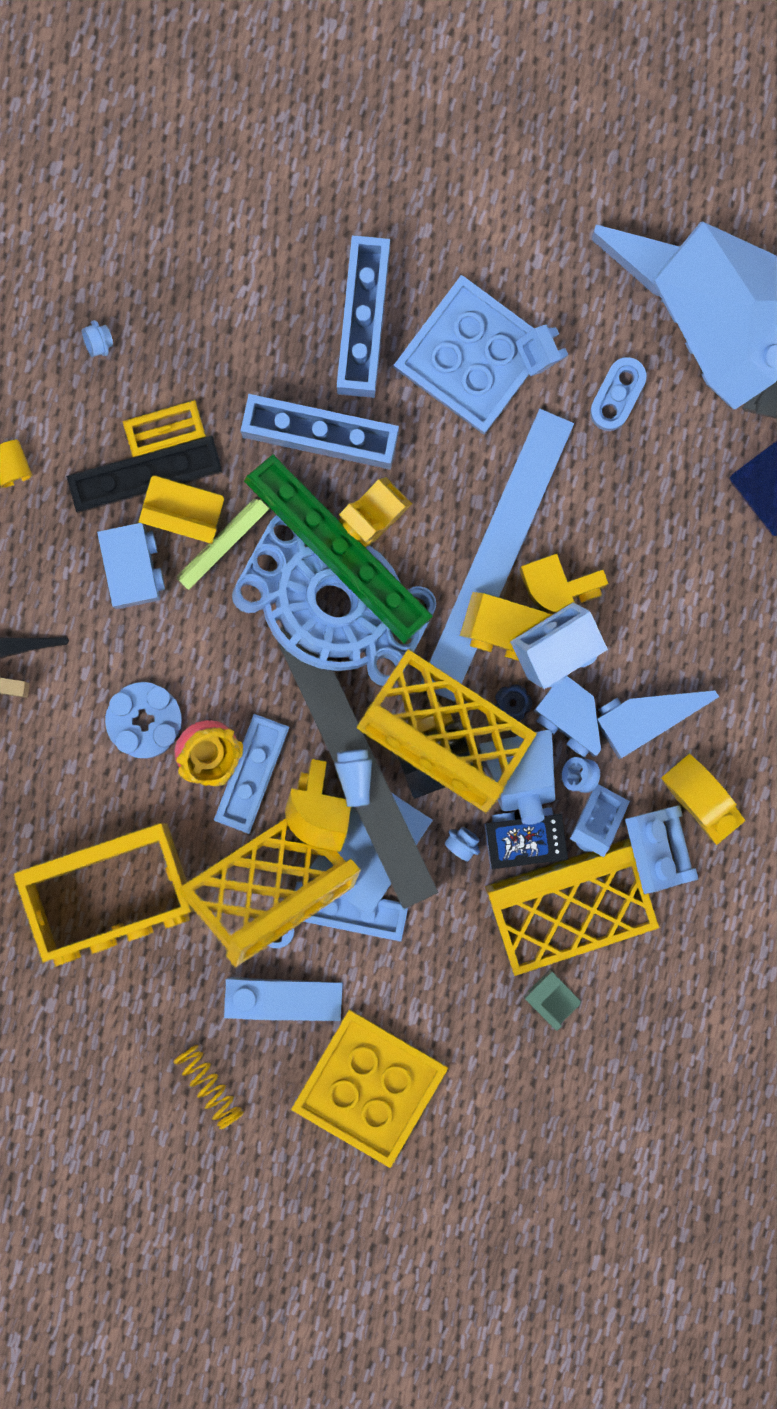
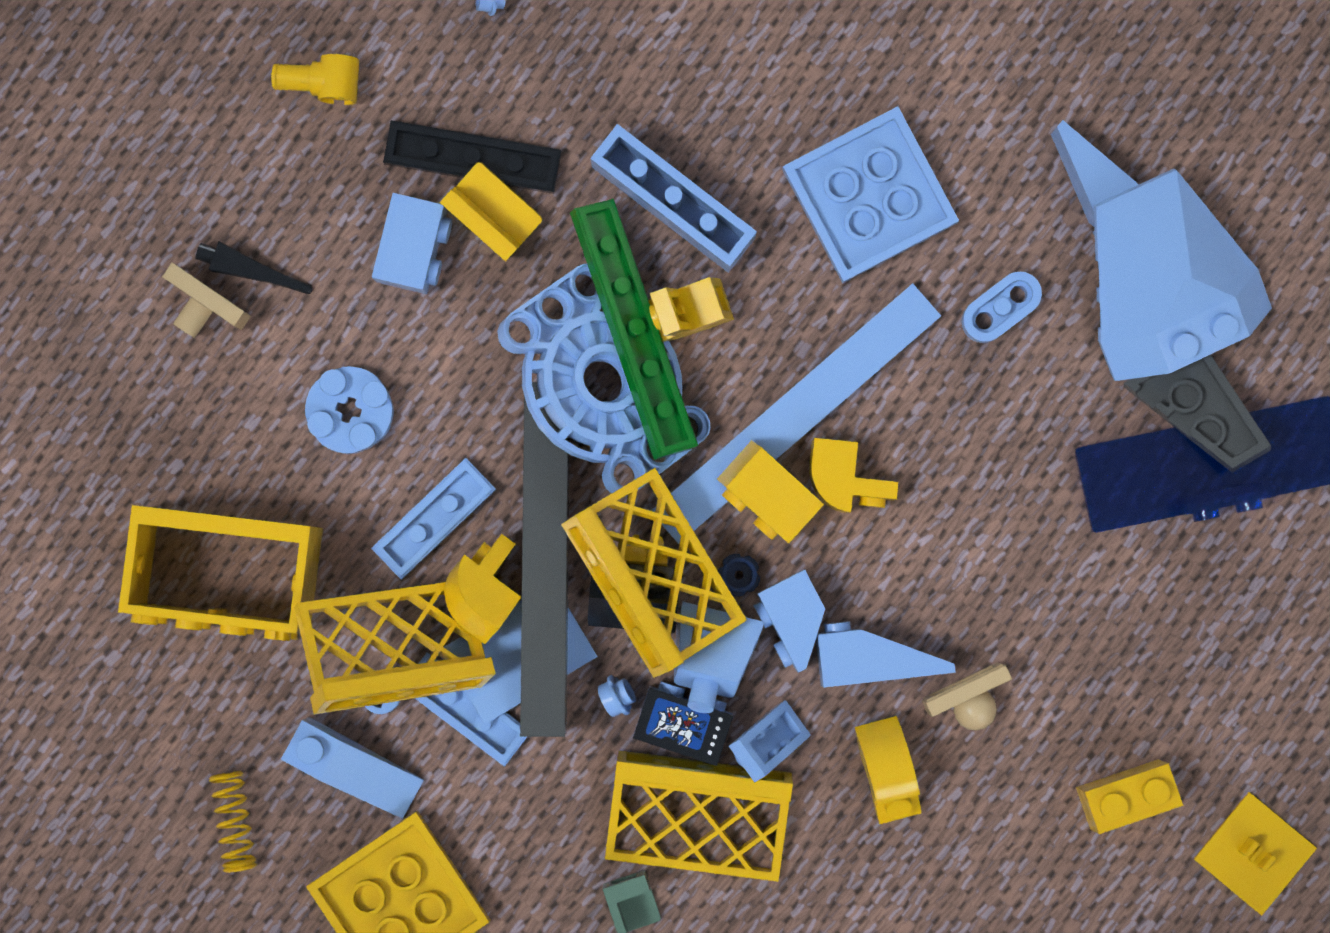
camera: 25 degrees right, 0 degrees up
(159, 415) = (516, 103): yellow tile -> none
(207, 753) = (397, 476): yellow hair -> none
(222, 543) = (517, 266): yellowish green tile -> none
(354, 773) = (536, 573): light blue cone -> none
(363, 316) = (775, 100): light blue brick -> none
(540, 350) = (942, 222): light blue tile -> none
(559, 646) = (813, 540): light blue brick -> none
(571, 774) = (764, 679): light blue bush -> none
(653, 852) = (810, 798): light blue plate -> none
(740, 712) = (970, 697): none -> tan tile

